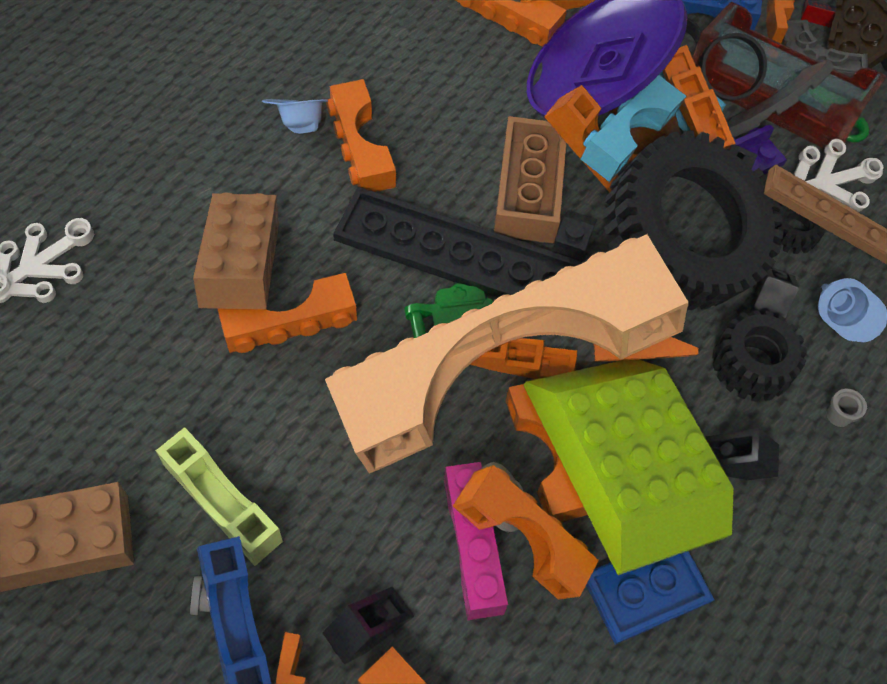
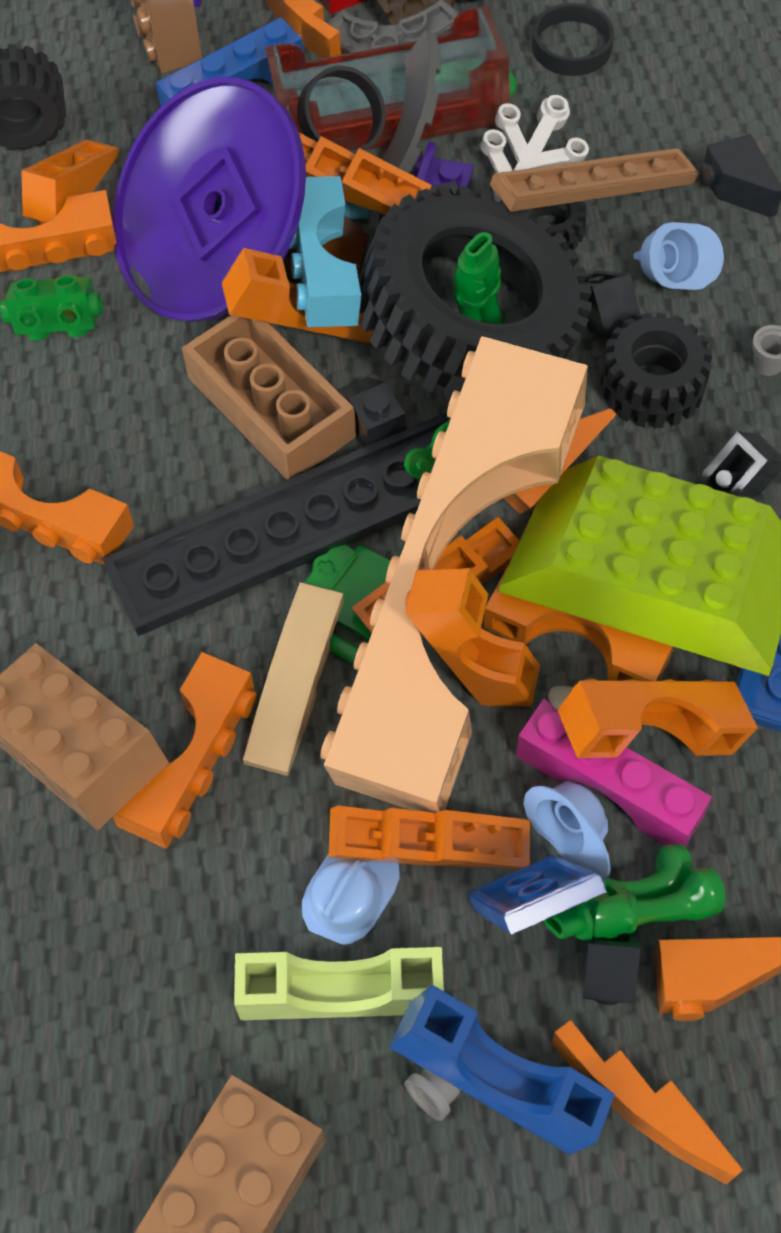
camera: 40 degrees left, 0 degrees up
(285, 460) = (348, 897): none -> light blue piece
(347, 474) = (429, 838): none -> orange slope
(353, 552) = (535, 893): none -> blue tile
(377, 329) = (293, 679): none -> tan slope
(391, 606) = (668, 894): none -> green piece
(428, 541) = (572, 823): none -> light blue piece
(464, 362) = (449, 614): none -> orange arch
(476, 46) = (52, 306): none -> green brick
(697, 217) = (478, 280): none -> green piece

